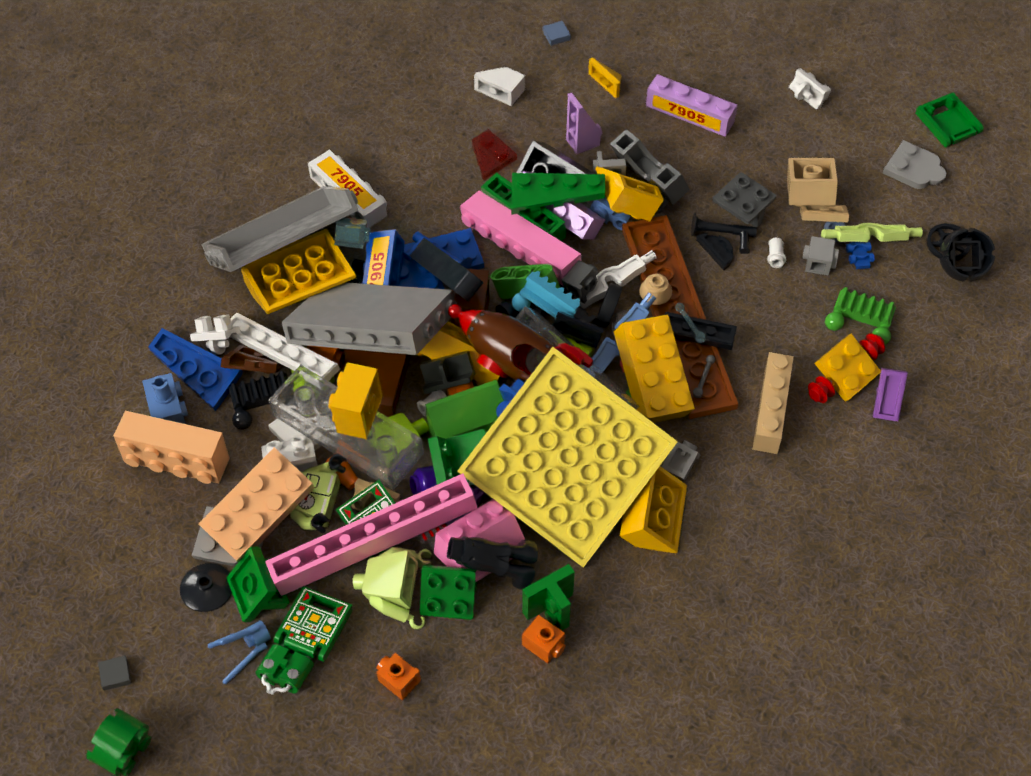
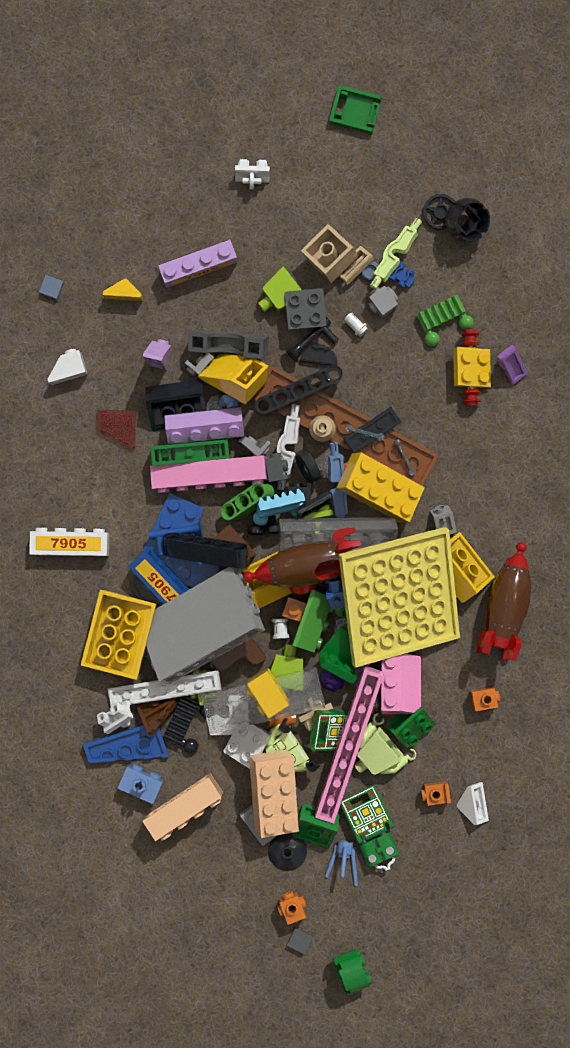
camera: 45 degrees left, 30 degrees up
(146, 630) = (292, 914): none -> orange brick
(279, 227) = (75, 620): light grey panel -> none
(352, 233) = (122, 580): clear light blue brick -> none
(422, 725) = (473, 804): none -> white slope
(447, 371) = (277, 609): pearl dark grey panel -> none
(494, 557) = (422, 688): black piece -> none
(550, 596) = (465, 677): green bracket -> none
(554, 189) = (195, 432): green wing -> none
(582, 248) = (250, 444): none -> light grey bracket
(656, 574) = (507, 607): none -> reddish brown piece
(669, 245) = (305, 383): none -> black beam
(733, 166) = (275, 291): none -> lime torso
(773, 403) = (456, 434): tan brick -> none
(915, 166) = (369, 170): light grey plate -> none

